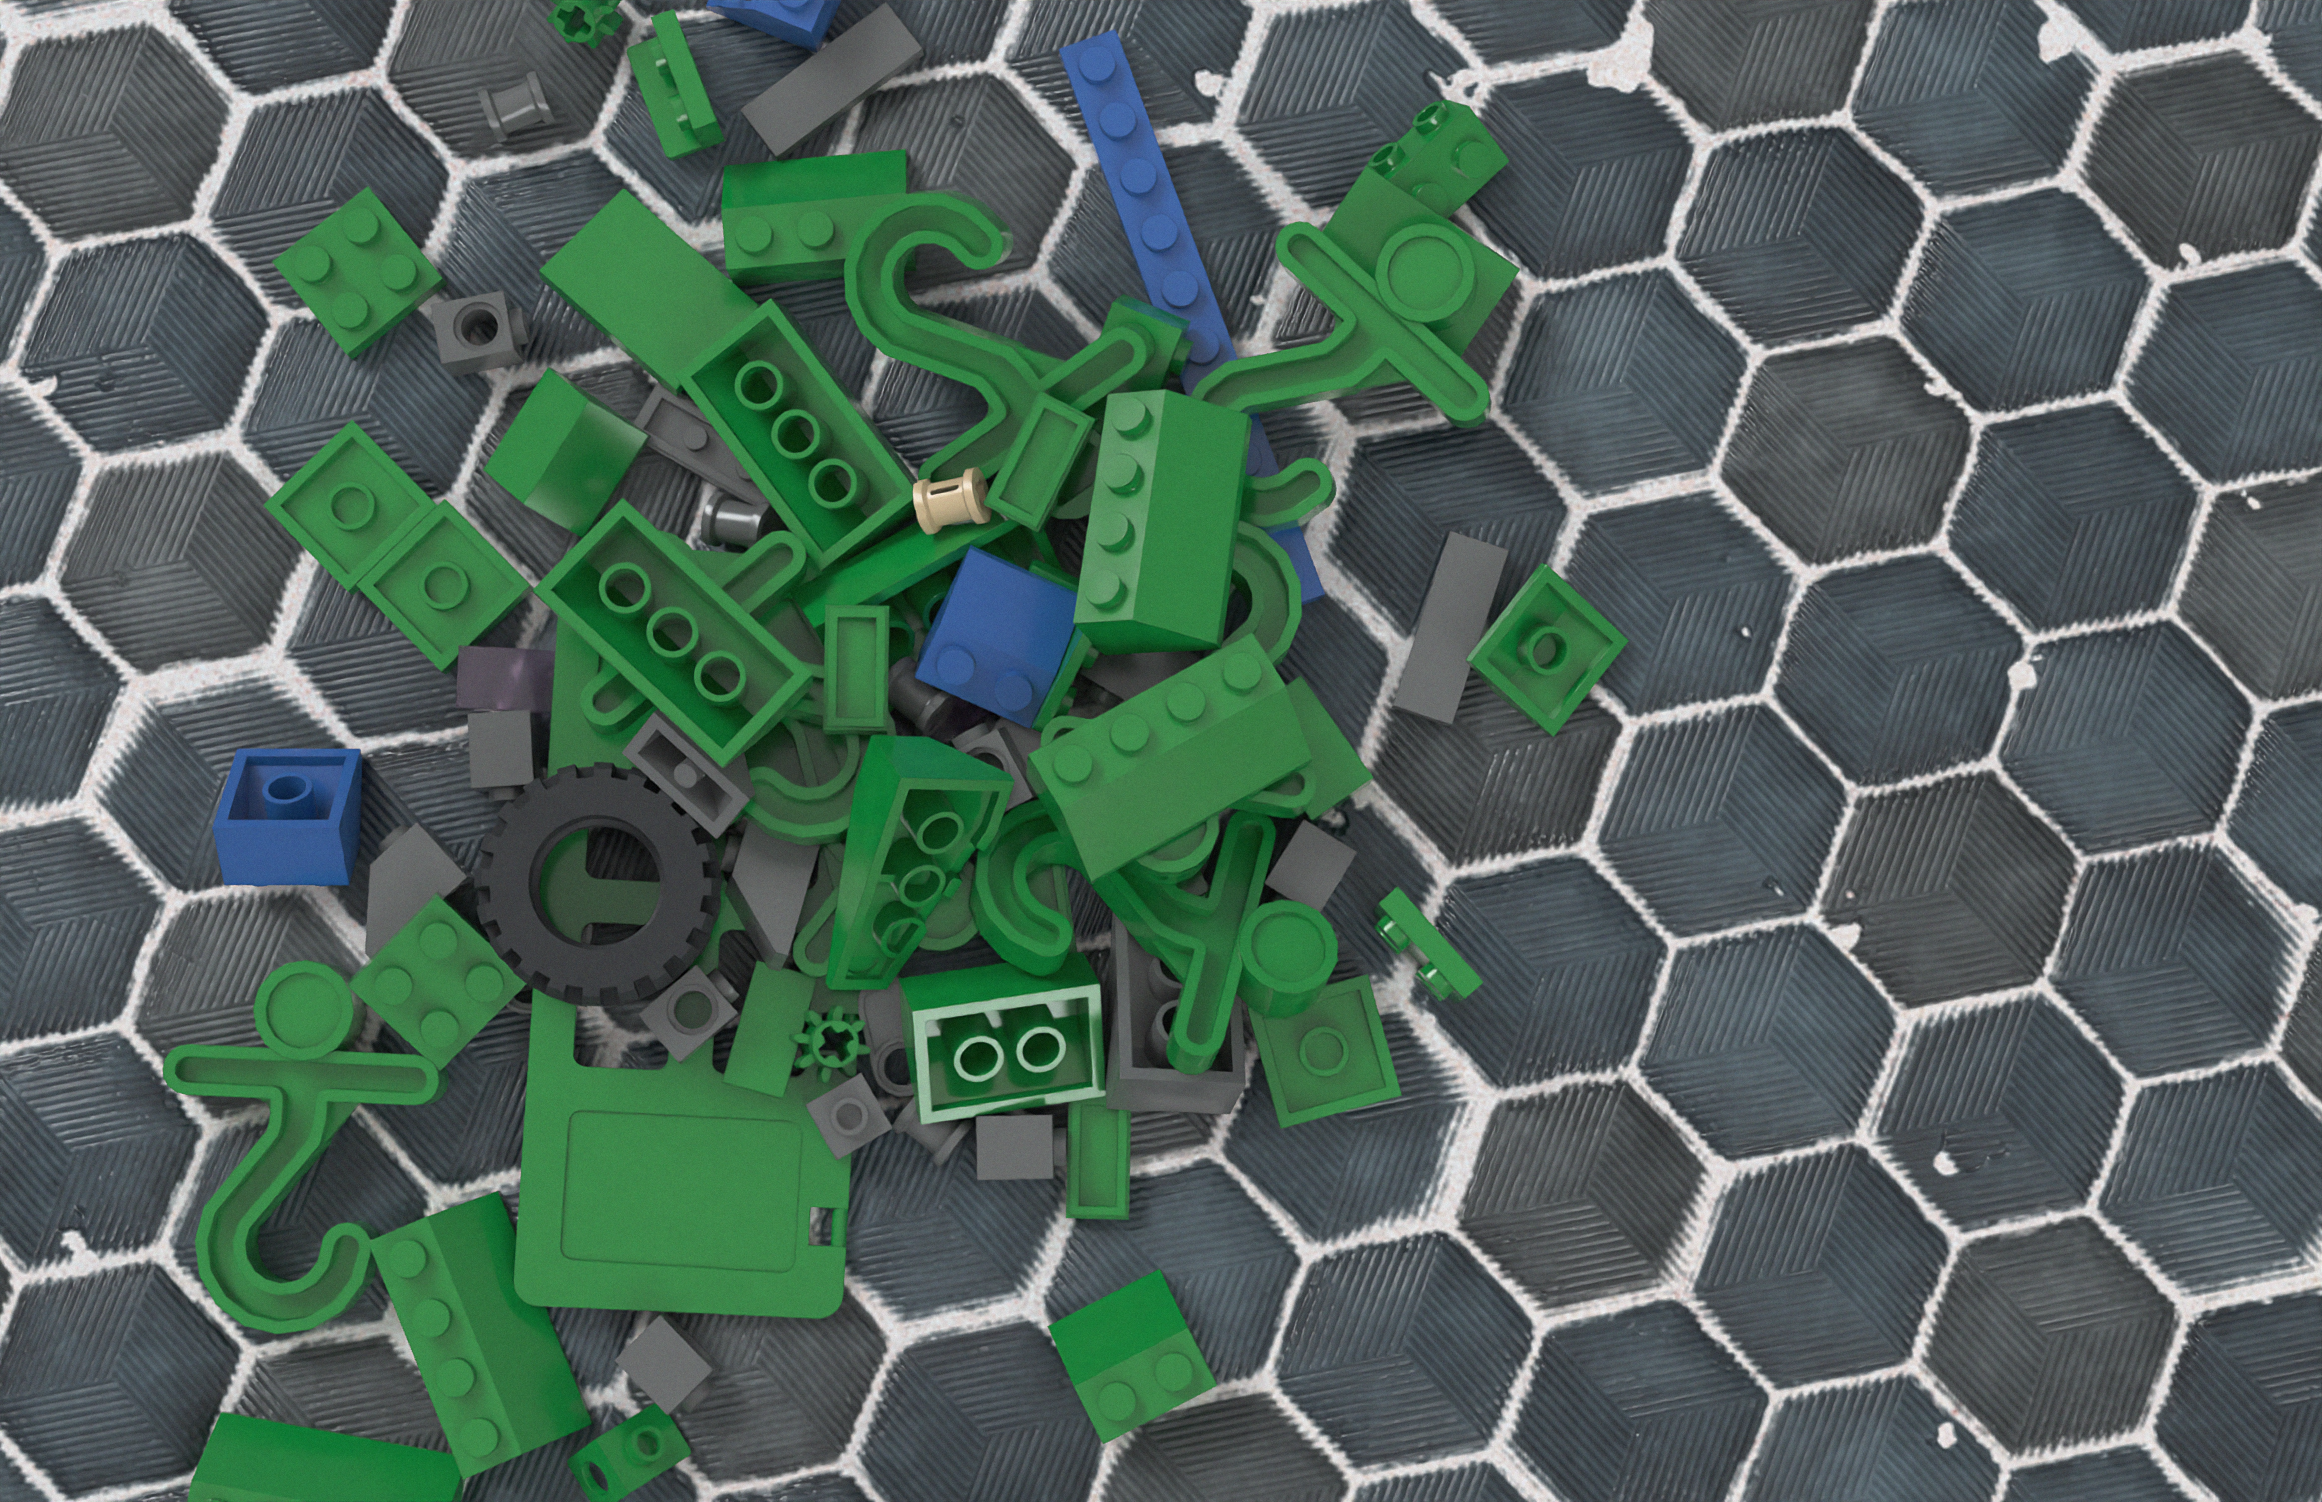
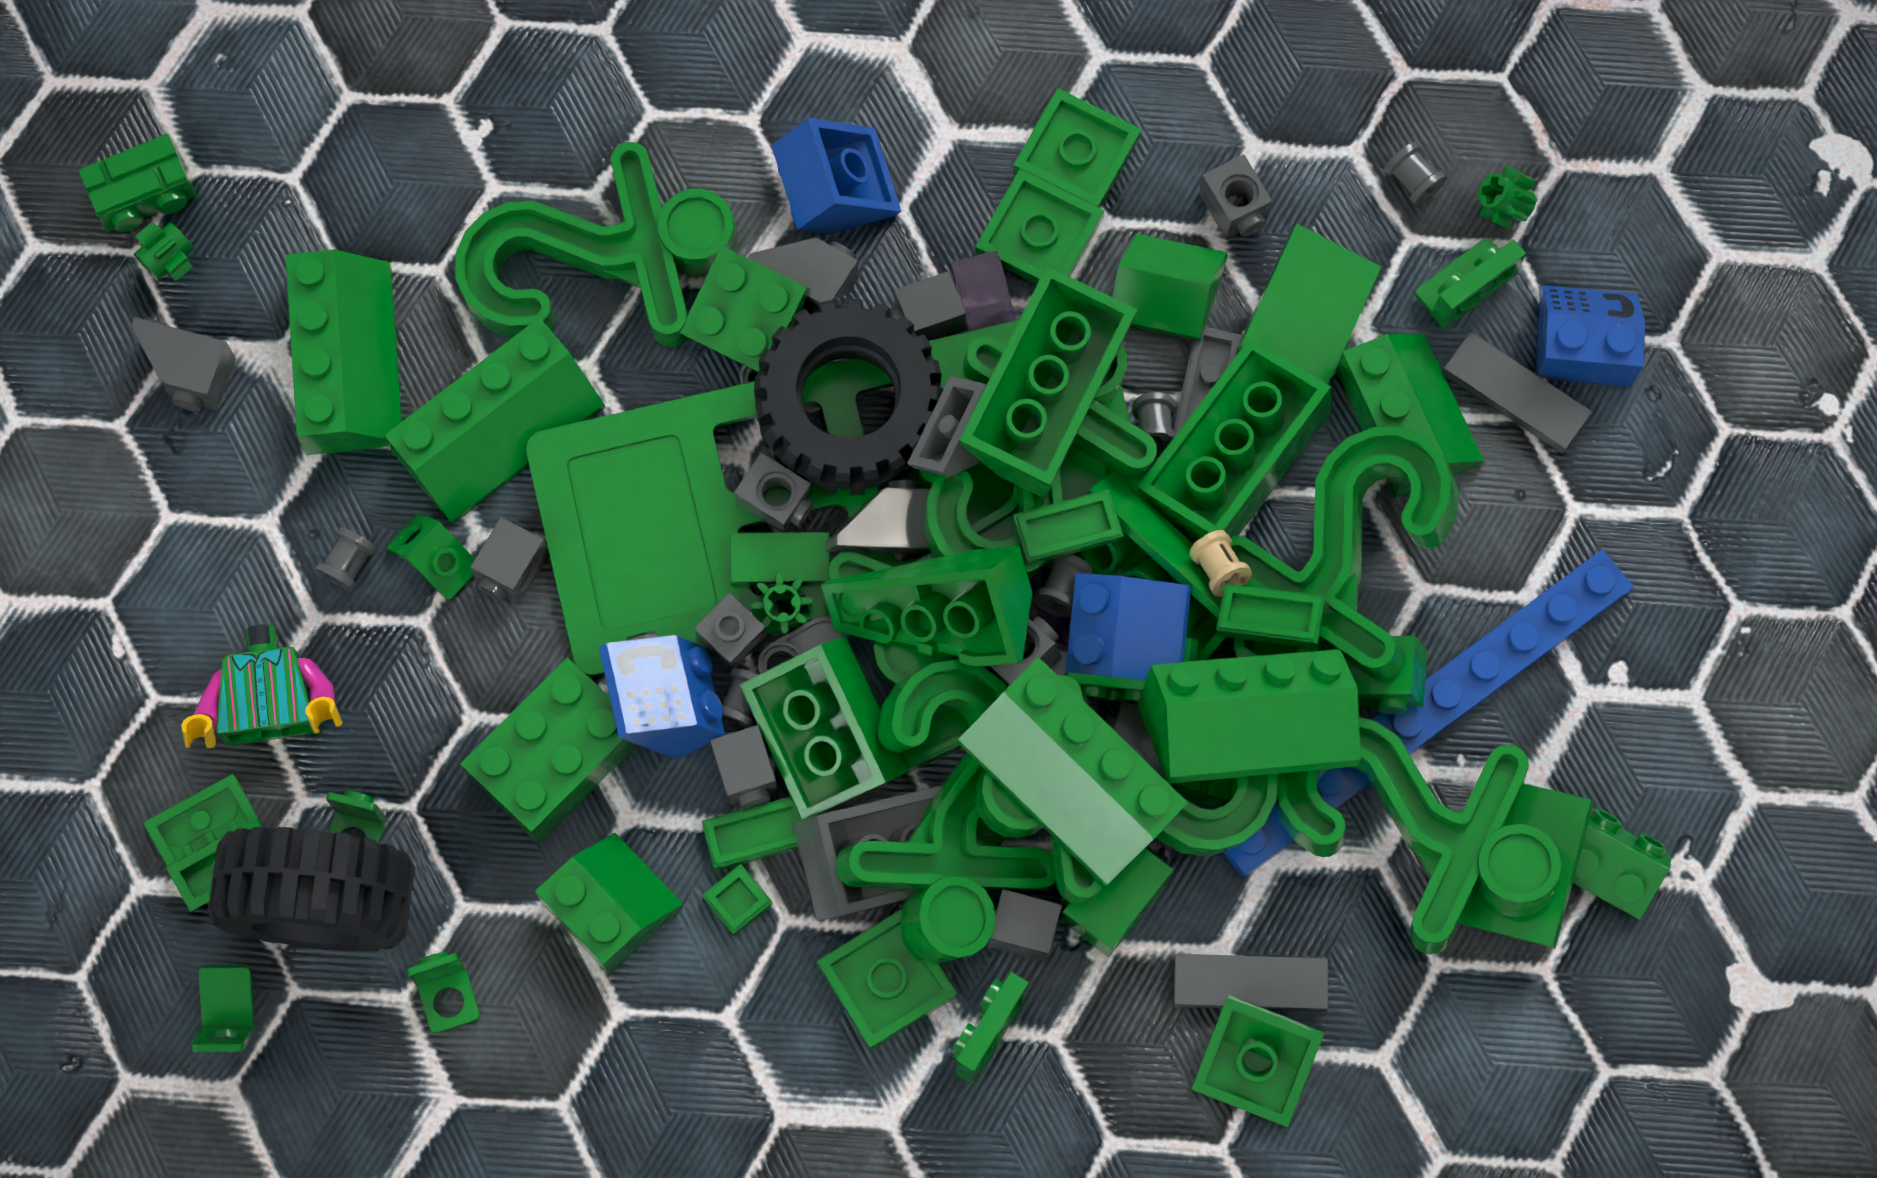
camera: 70 degrees right, 10 degrees down
(359, 272) = (1253, 105): green plate -> none
(904, 1221) = (662, 694): none -> blue slope
(927, 1376) = (549, 751): none -> green brick
(1173, 1202) = (737, 900): none -> green tile

